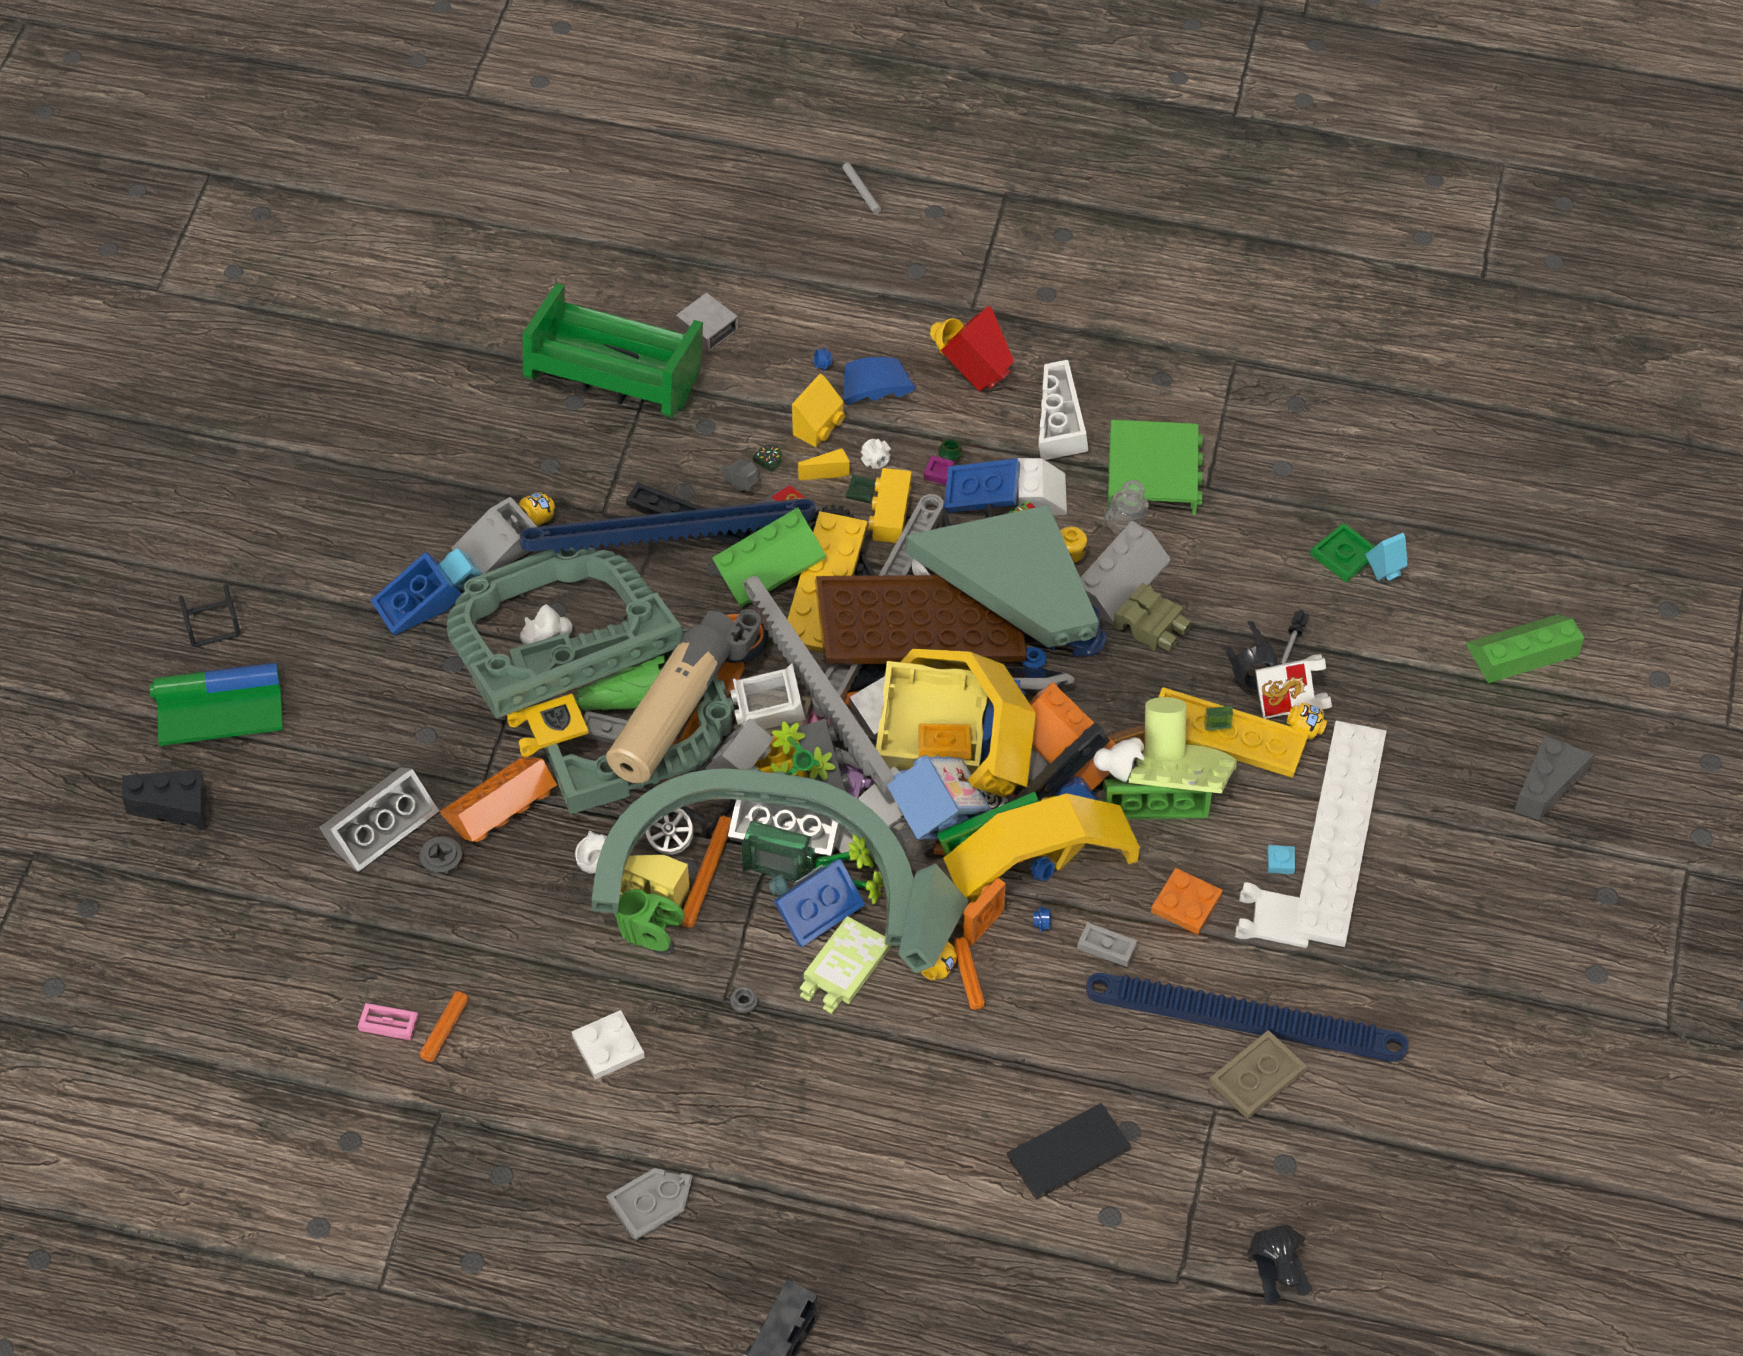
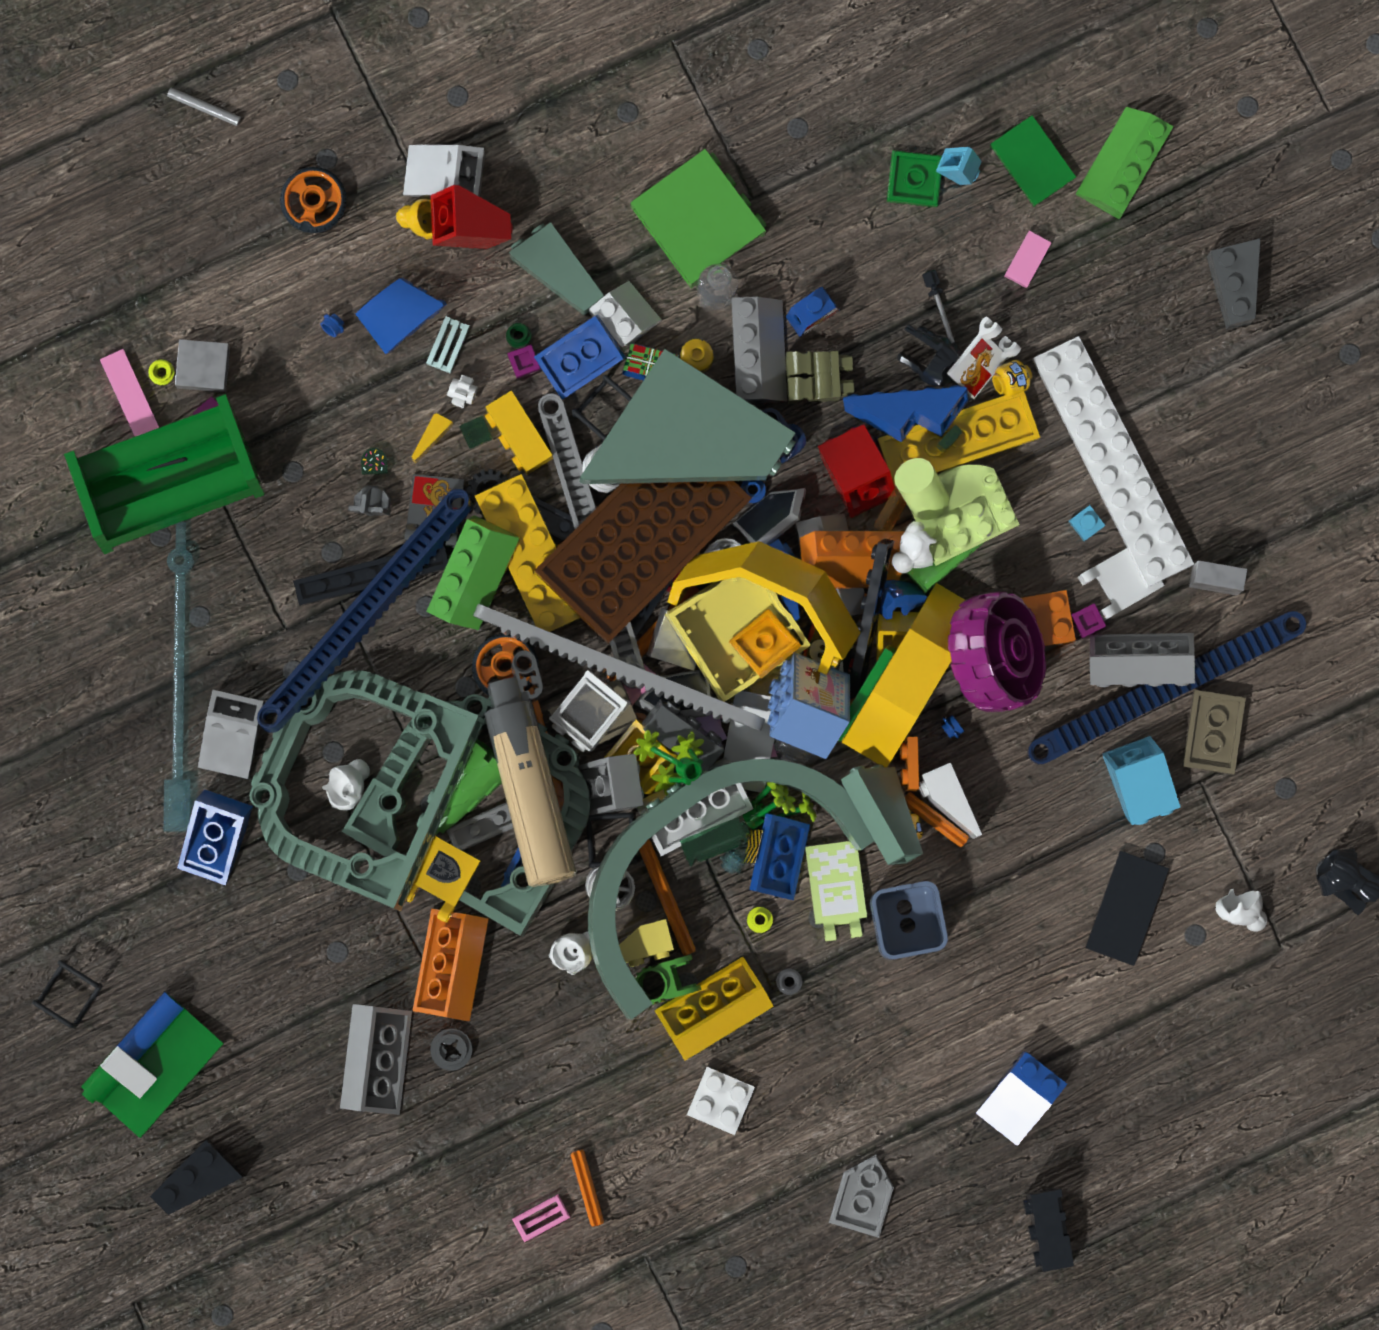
camera: 45 degrees left, 30 degrees up
(196, 689) = (128, 1072): none -> white tile
(459, 567) = (229, 784): medium azure brick -> none
(538, 508) = (234, 675): yellow head -> none
(570, 424) = (178, 791): none -> clear light blue bar
(644, 298) = (129, 393): none -> bright pink tile
(665, 974) = (721, 1007): none -> yellow slope
(673, 307) = (159, 364): none -> neon yellow plate
(765, 946) = (751, 919): none -> neon yellow plate
(817, 412) = (383, 391): yellow slope -> none
(852, 1222) = (1021, 1098): none -> slope
(868, 997) = (926, 912): none -> sand blue piece
(883, 281) = (307, 221): none -> orange wheel
(891, 422) = (455, 325): none -> light aqua tile
(993, 949) = (946, 794): none -> white slope
(1013, 320) = (441, 166): none -> slope
(1017, 422) = (556, 267): none -> sand green slope
(1061, 418) = (585, 230): white wedge -> none
(1107, 944) = (1020, 715): light grey plate -> none
(1124, 694) = (857, 470): none -> red slope
(1124, 869) = (997, 652): none -> magenta wheel
(1164, 1063) = (1142, 780): none -> medium azure slope
(1167, 1222) = (1243, 910): none -> white piece
(1187, 573) = (811, 311): none -> blue torso
(1195, 678) = (900, 411): none -> blue slope
(1222, 925) = (1088, 620): none -> magenta tile
(1240, 973) = (1142, 659): none -> light grey slope
(1357, 961) = (1218, 578): none -> flat silver piece
(1389, 658) = (1027, 259): none -> bright pink tile
(1450, 600) = (1033, 161): none -> green tile

